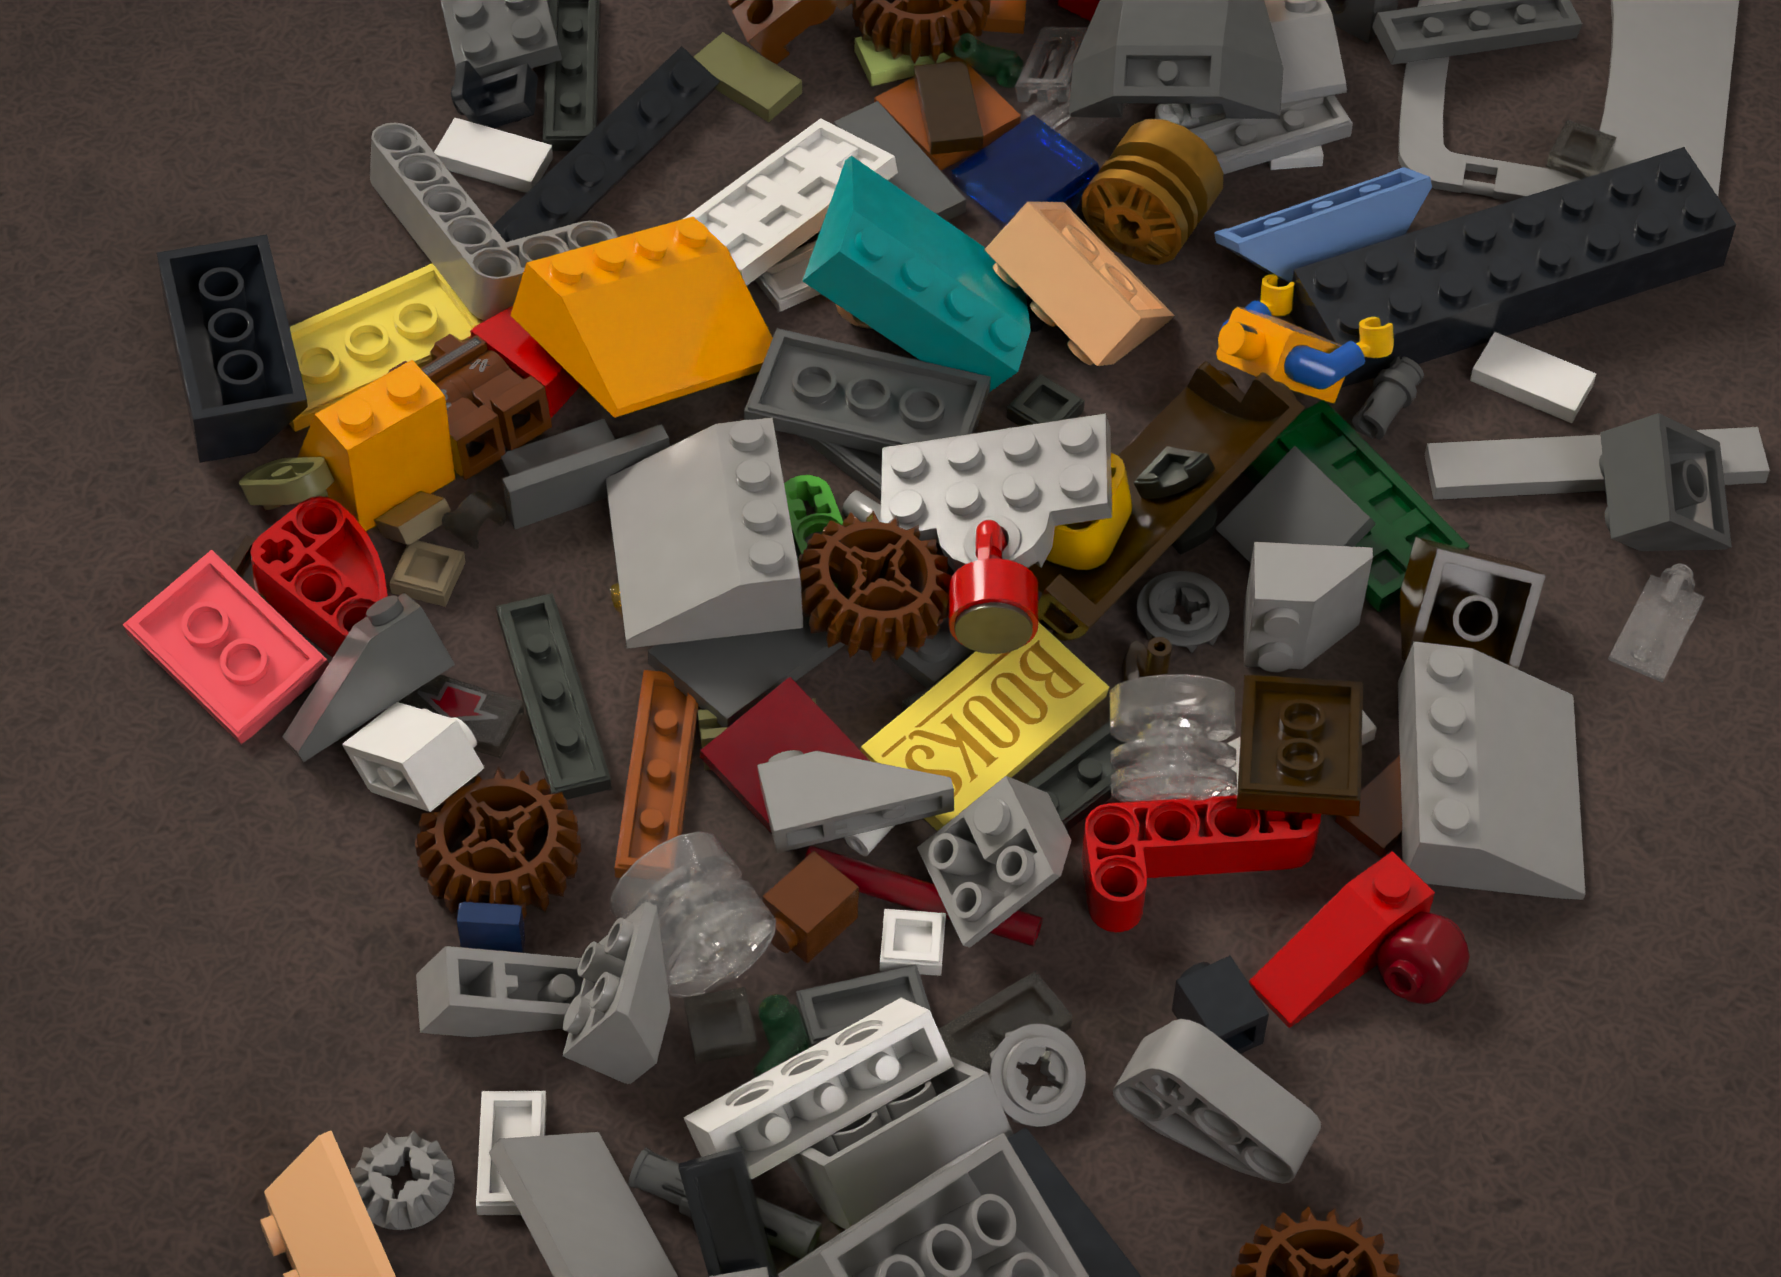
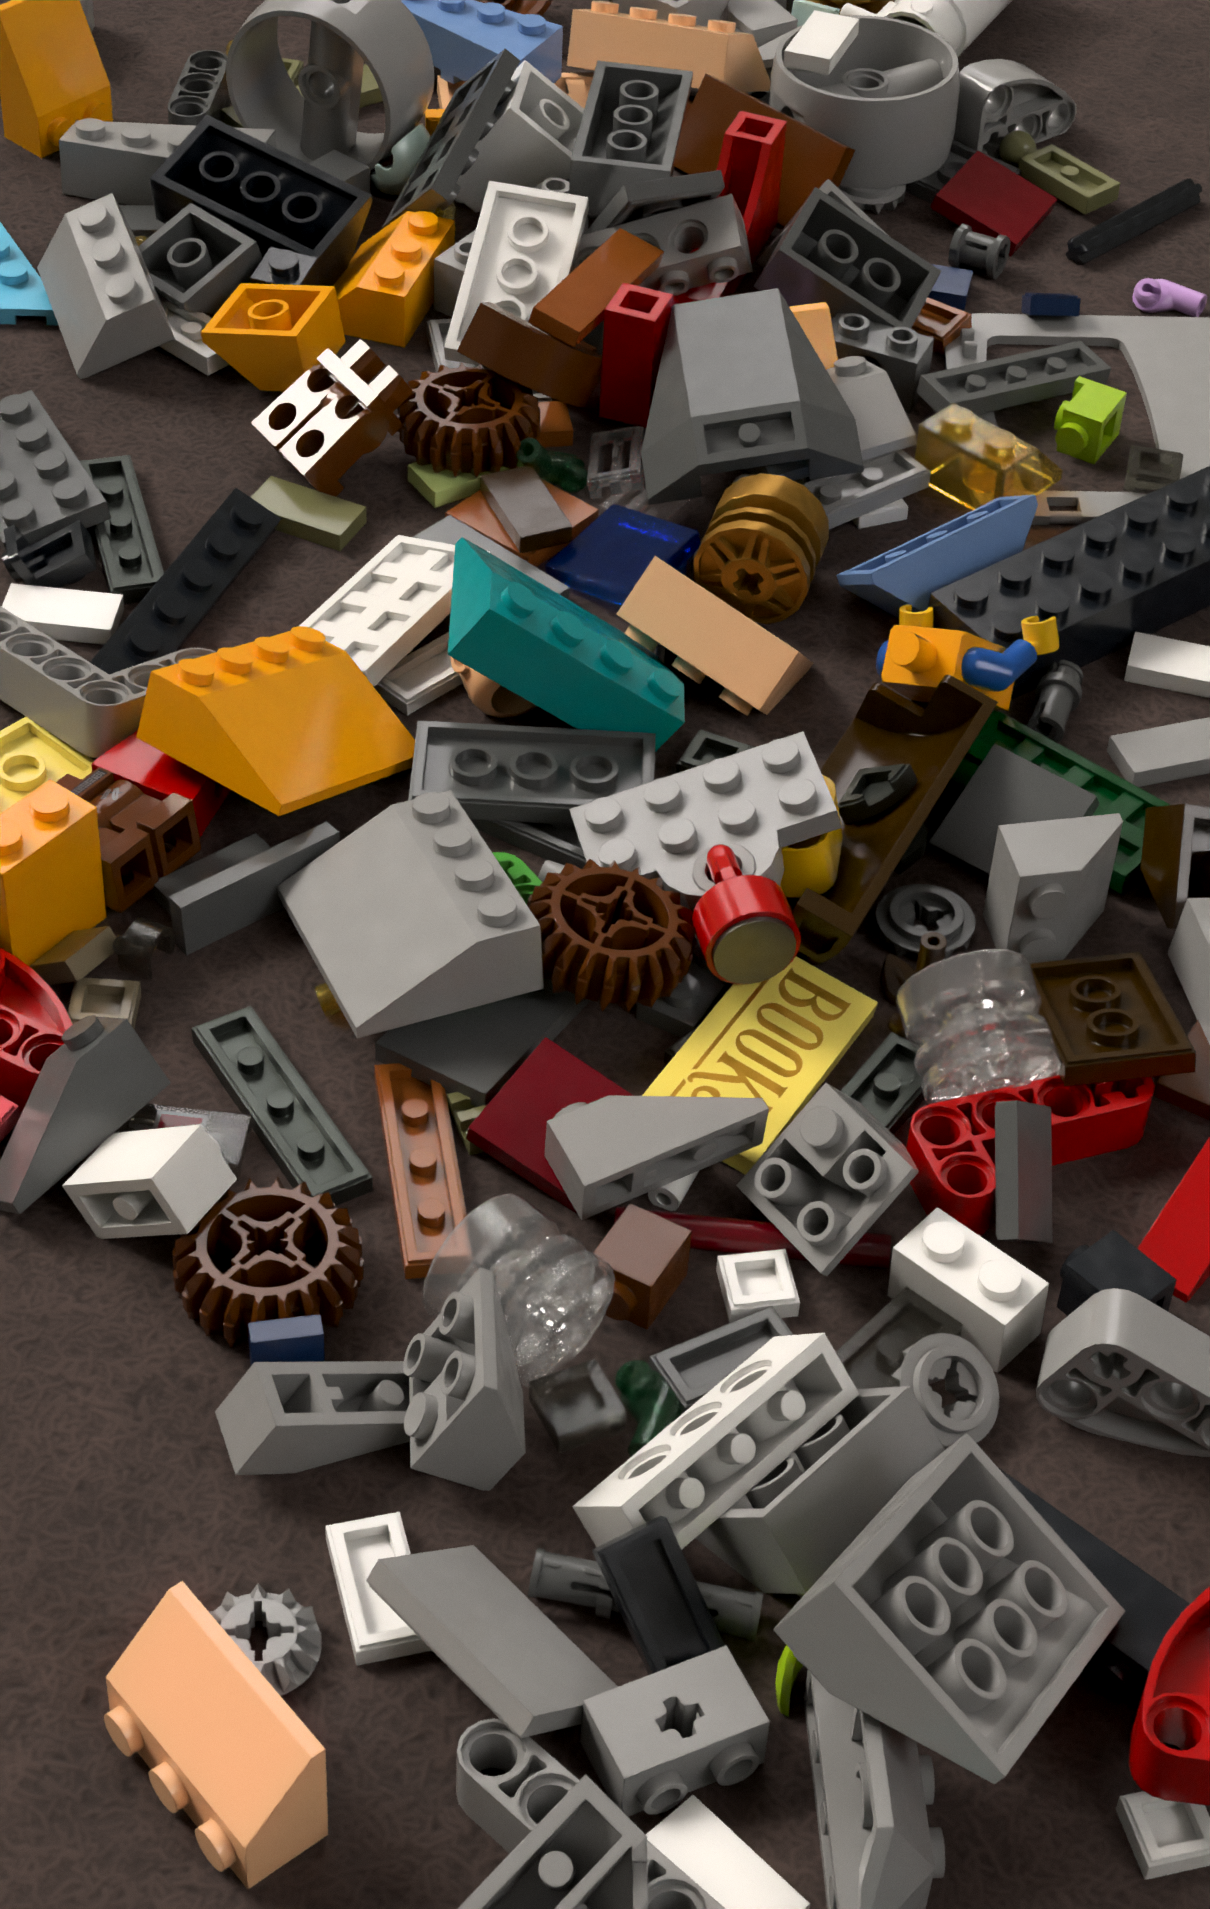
camera: 15 degrees left, 10 degrees down
(1090, 982) = (973, 1283): none -> white brick
(1170, 885) = (1023, 1172): none -> dark grey tile
(1408, 118) = (979, 460): none -> clear yellow slope
(1537, 83) = (1089, 420): none -> lime brick

